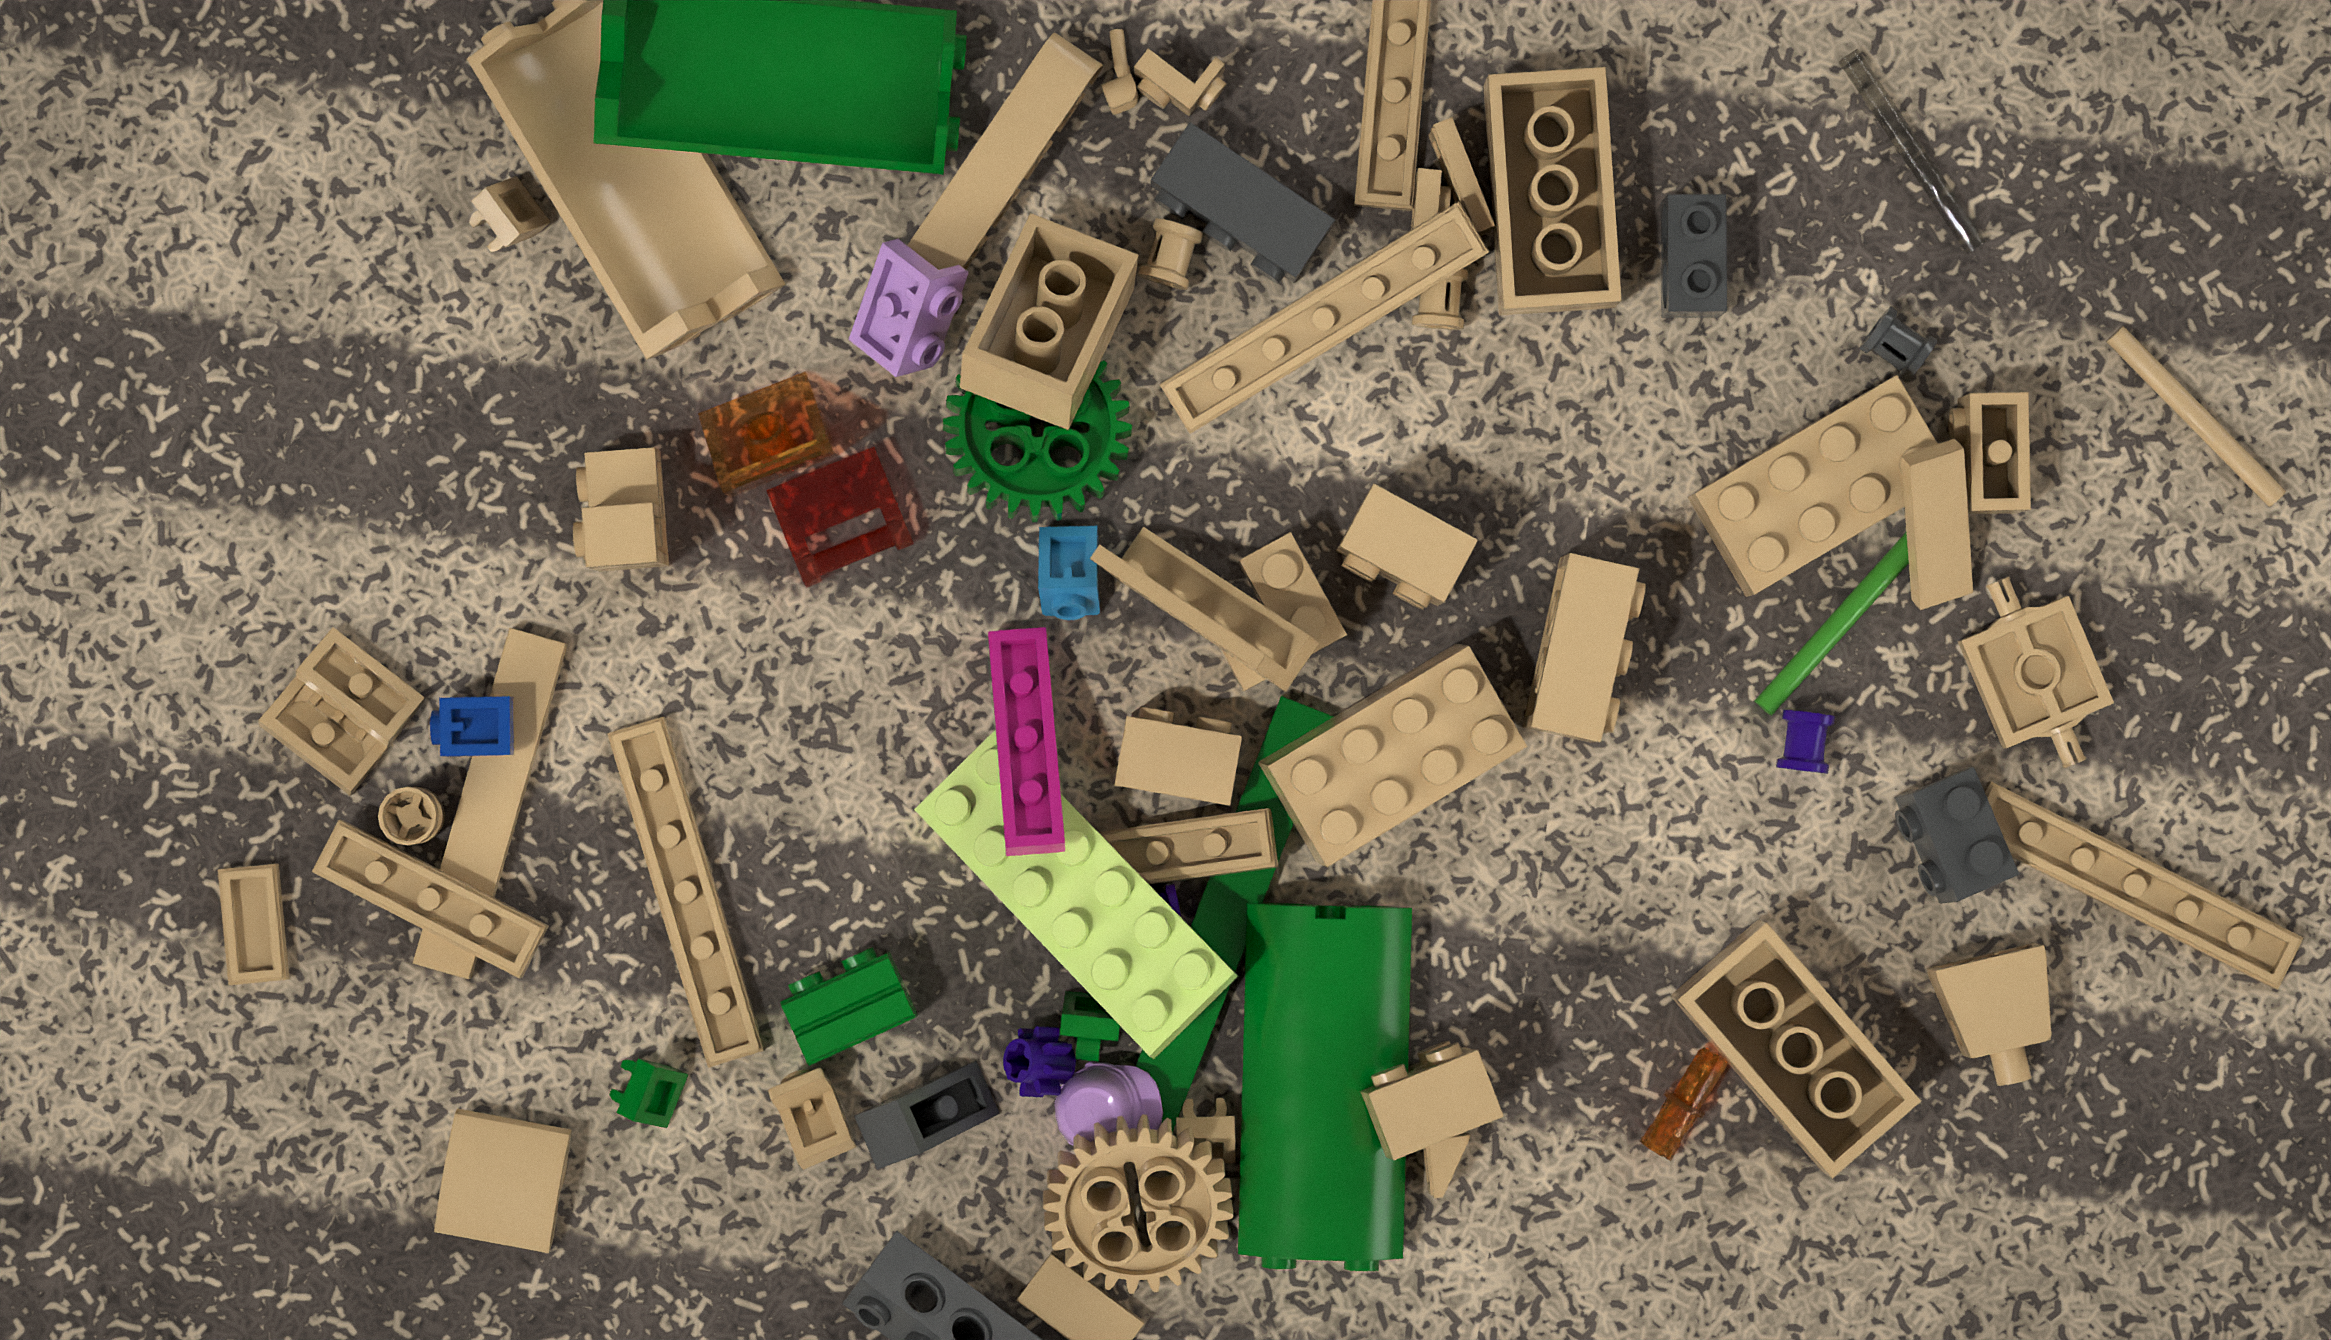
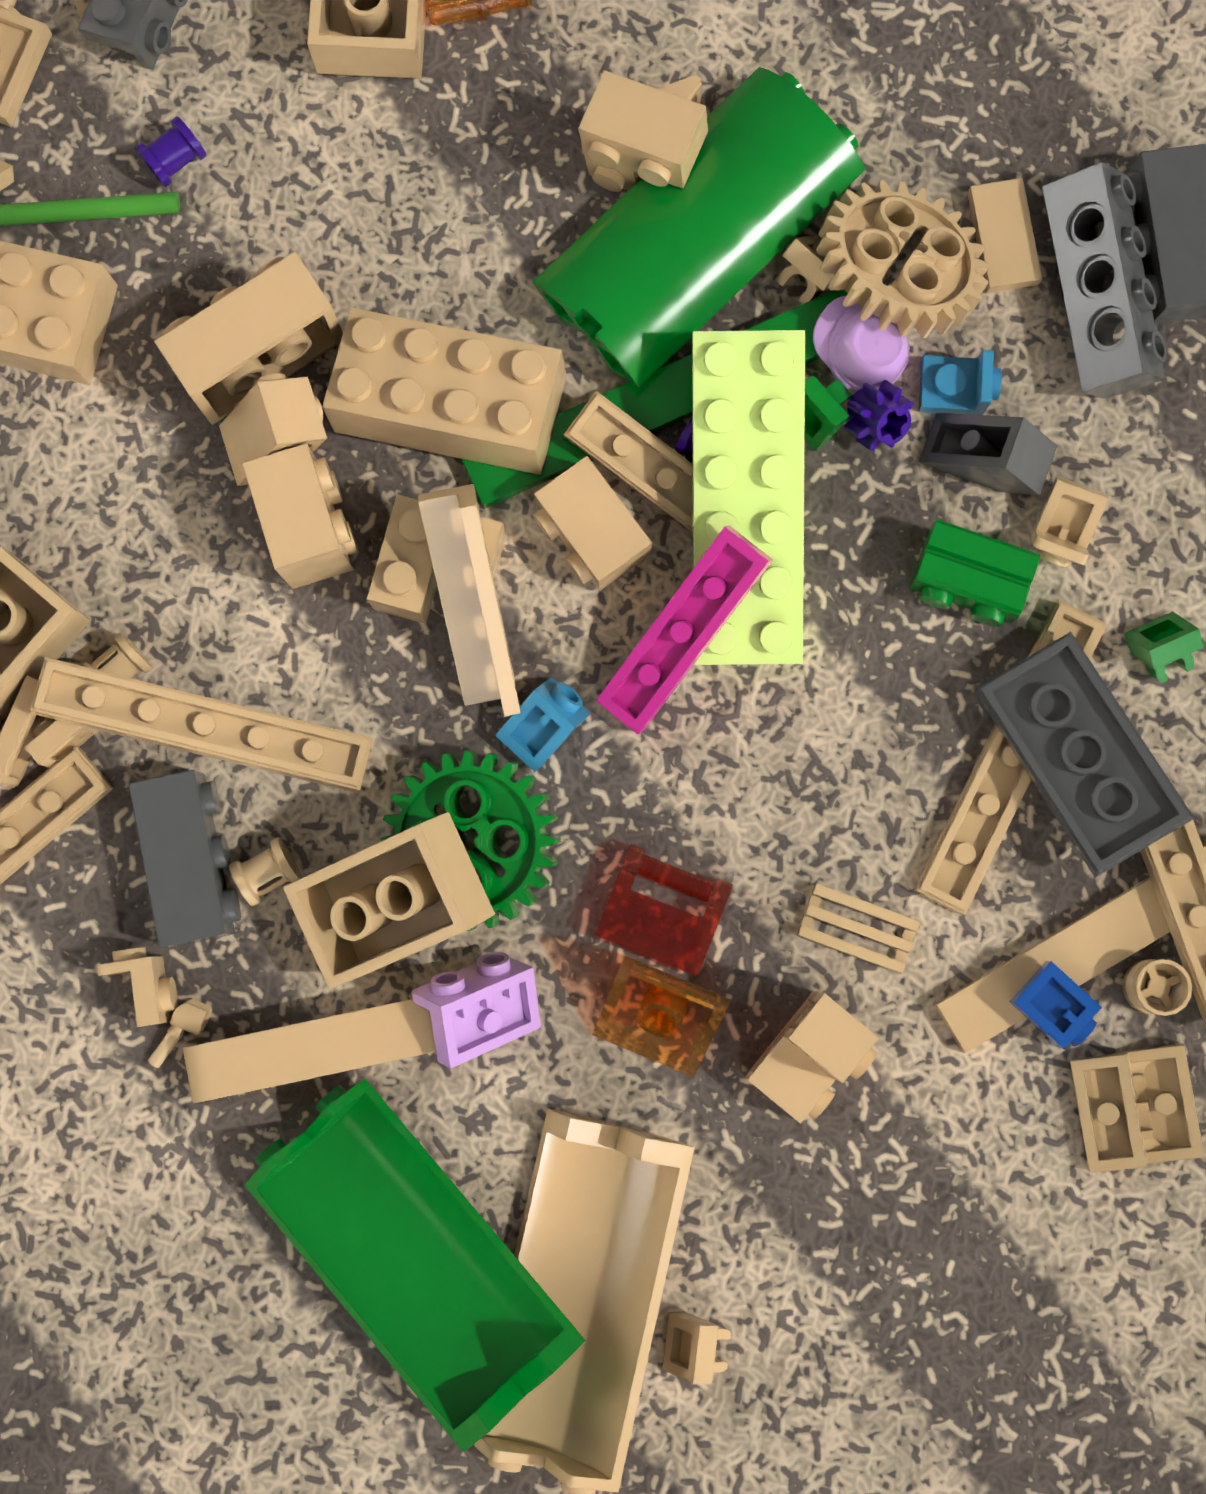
camera: 130 degrees left, 5 degrees down
(632, 940) = (1083, 754): none -> dark grey tile
(633, 665) = (902, 944): none -> tan tile
(1002, 1150) = (959, 384): none -> dark azure bracket
(1494, 594) = (271, 419): none -> tan brick

